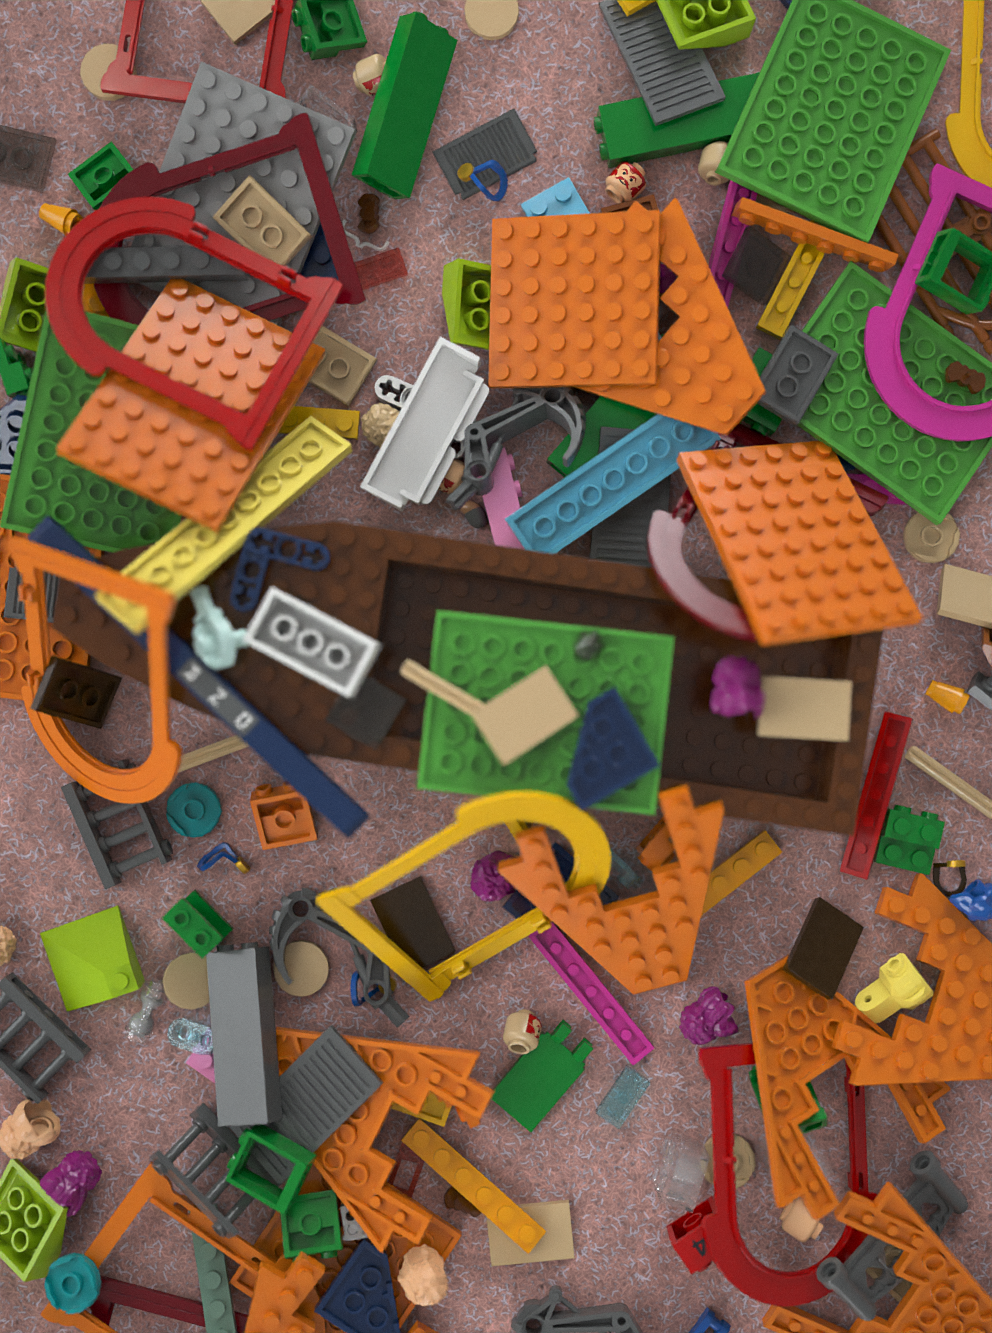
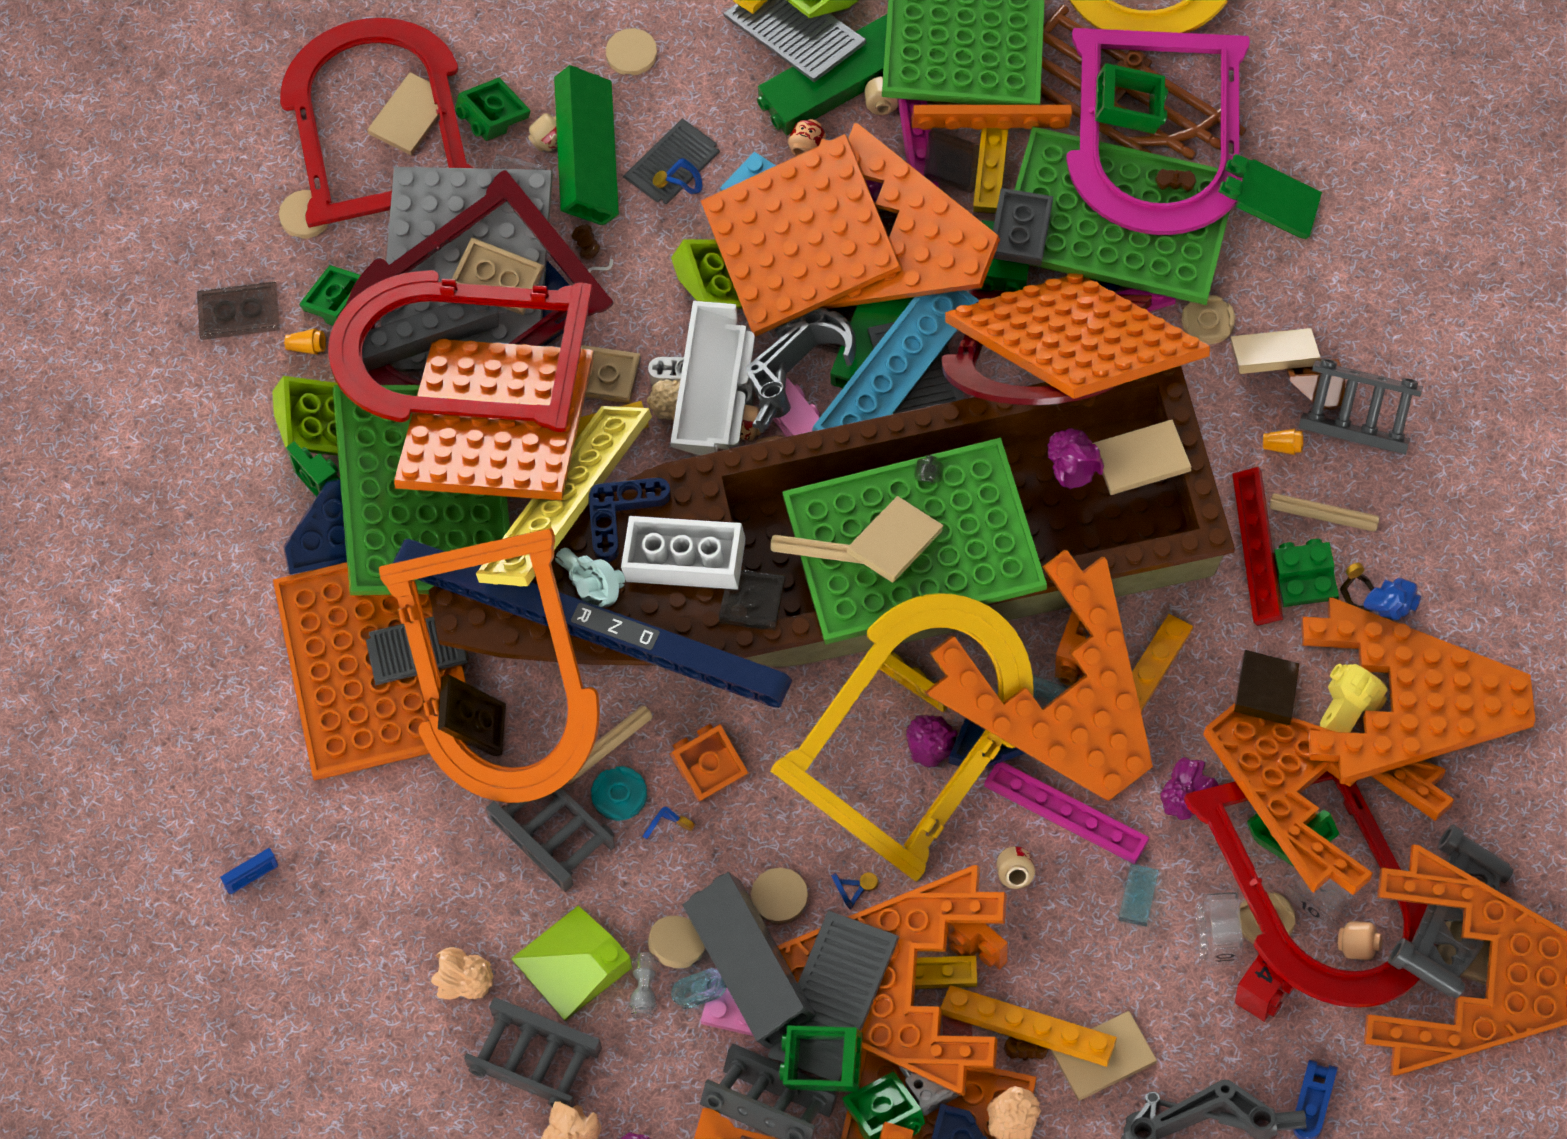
camera: 15 degrees left, 25 degrees down
(197, 923) = (663, 874): green panel -> none
(370, 973) = (836, 845): dark grey piece -> none
(381, 268) = (618, 279): clear red tile -> none
(413, 922) = (879, 809): dark brown tile -> none
(541, 1077) = (1052, 907): green tile -> none
(608, 751) = (982, 543): dark blue plate -> none

